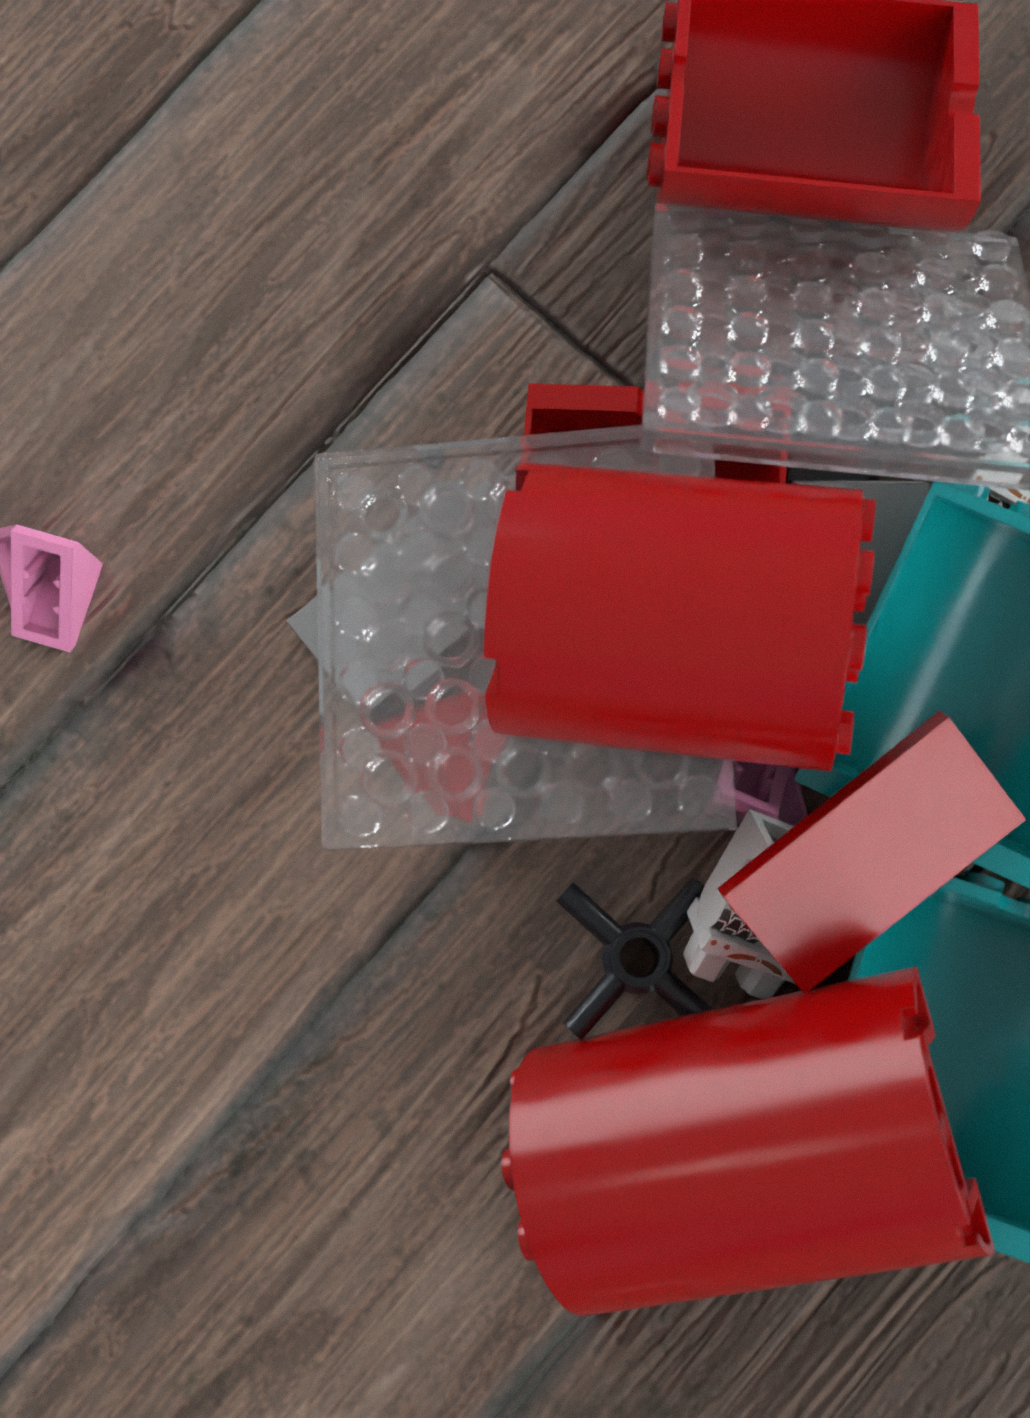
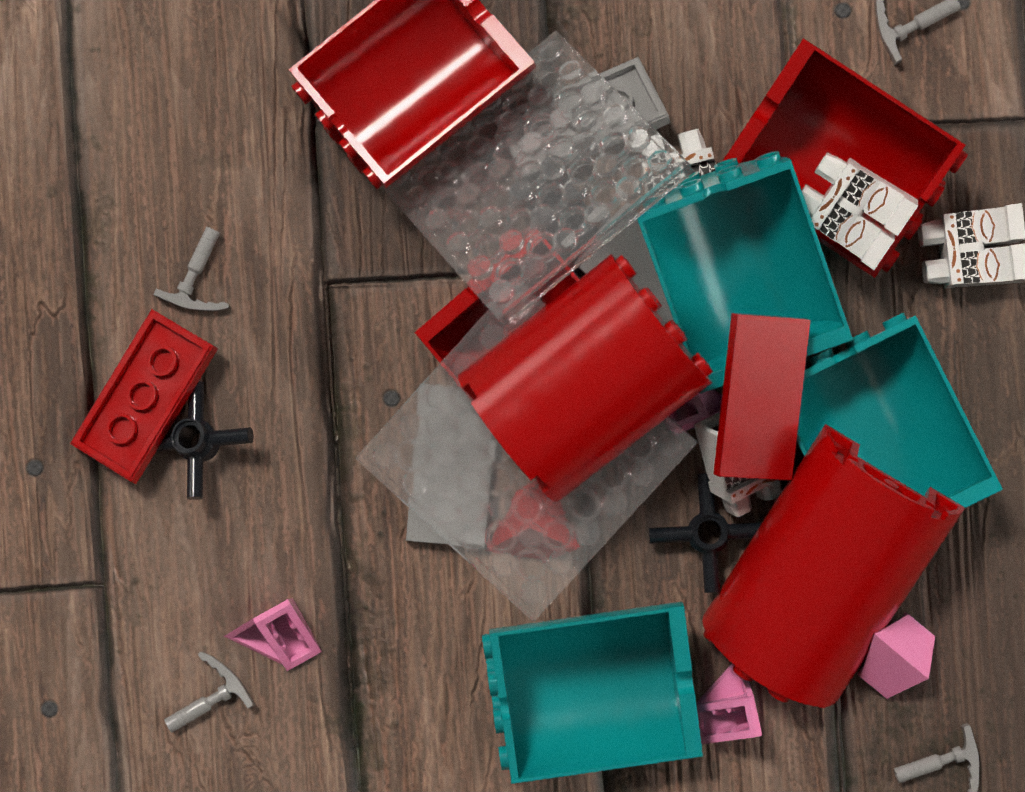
camera: 45 degrees left, 5 degrees up
(168, 189) = (143, 396): none -> red tile
(172, 284) = (208, 444): none -> black bar
(309, 1008) = (593, 692): none -> teal cylinder
(368, 114) = (195, 267): none -> light grey piece
(447, 1192) = (728, 710): none -> bright pink slope
(718, 1344) = (898, 657): none -> bright pink slope

